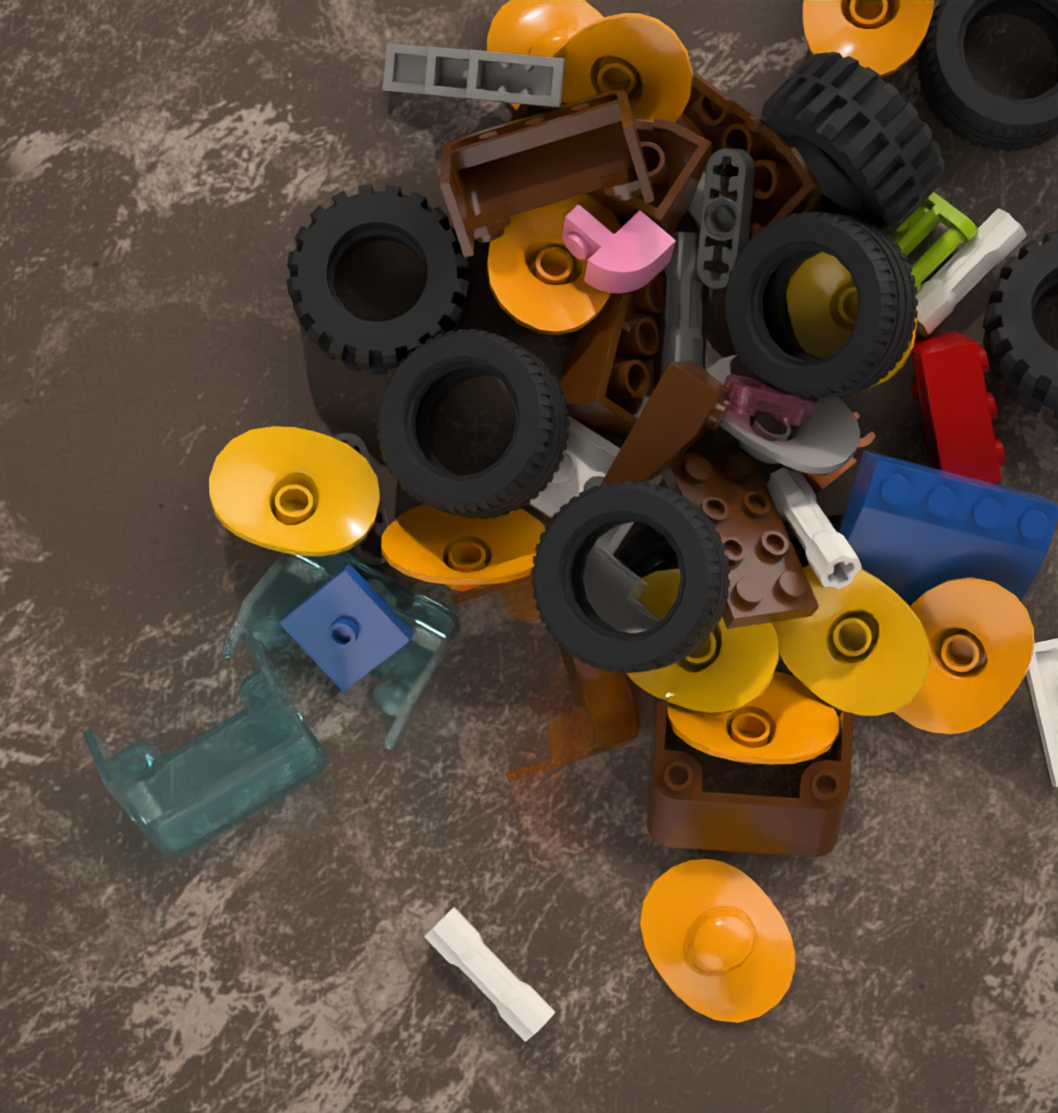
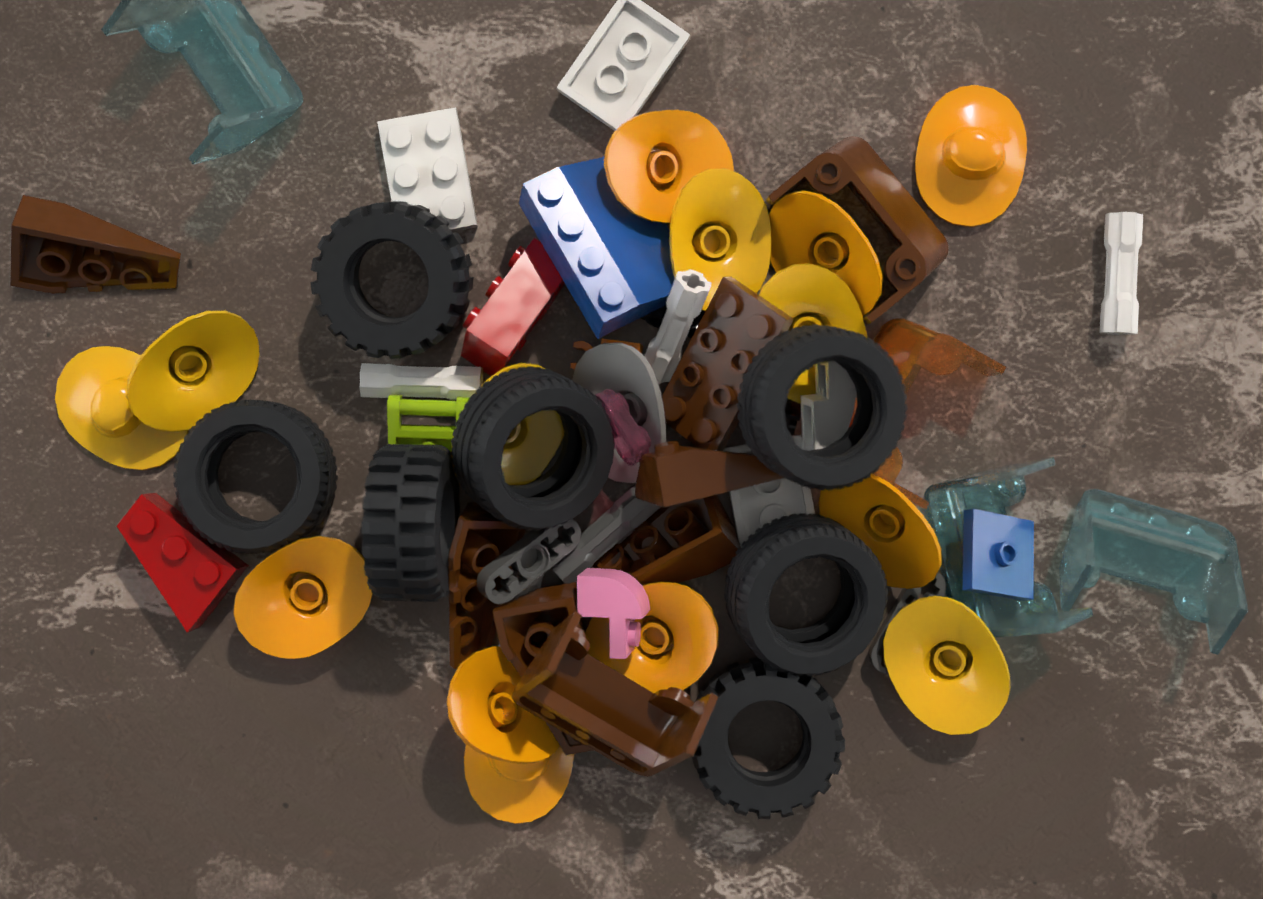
camera: 135 degrees left, 5 degrees up
(474, 74) = (582, 799): light grey slope -> none

